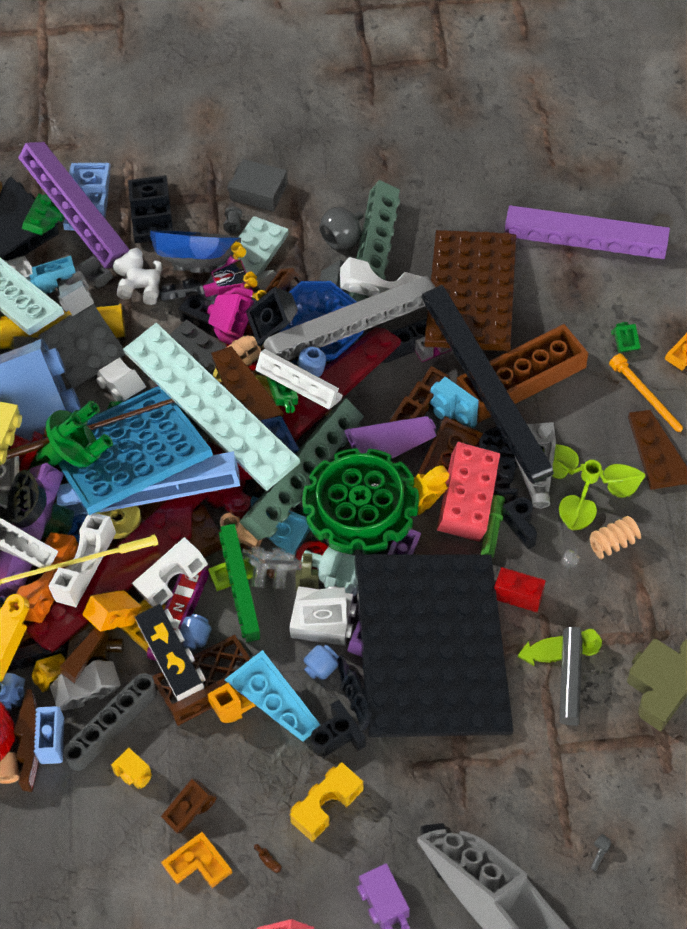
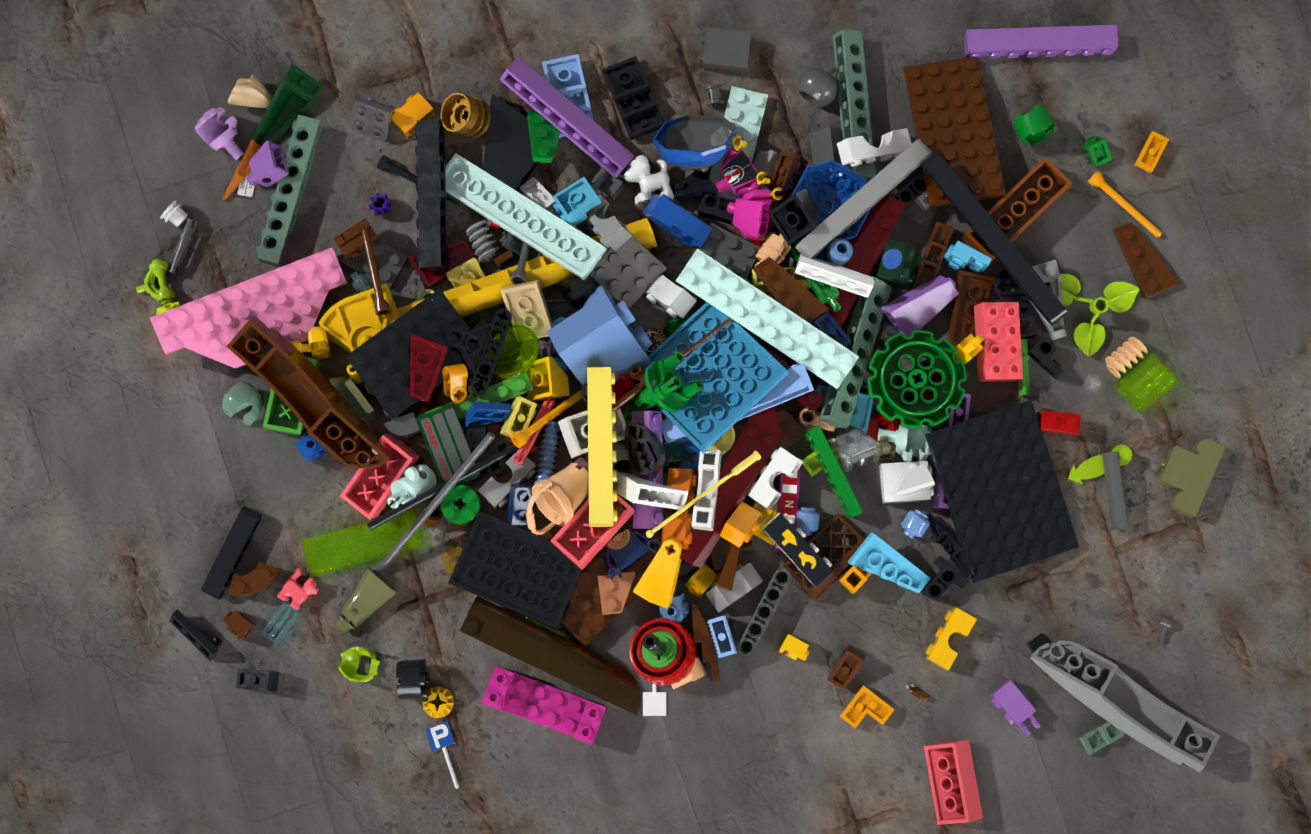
camera: 15 degrees left, 25 degrees up
(149, 306) = (677, 221): none -> blue wedge
(376, 394) = (899, 264): none -> clear green brick
(560, 299) = (1034, 125): none -> green brick
(633, 570) = (1146, 383): none -> clear neon green brick

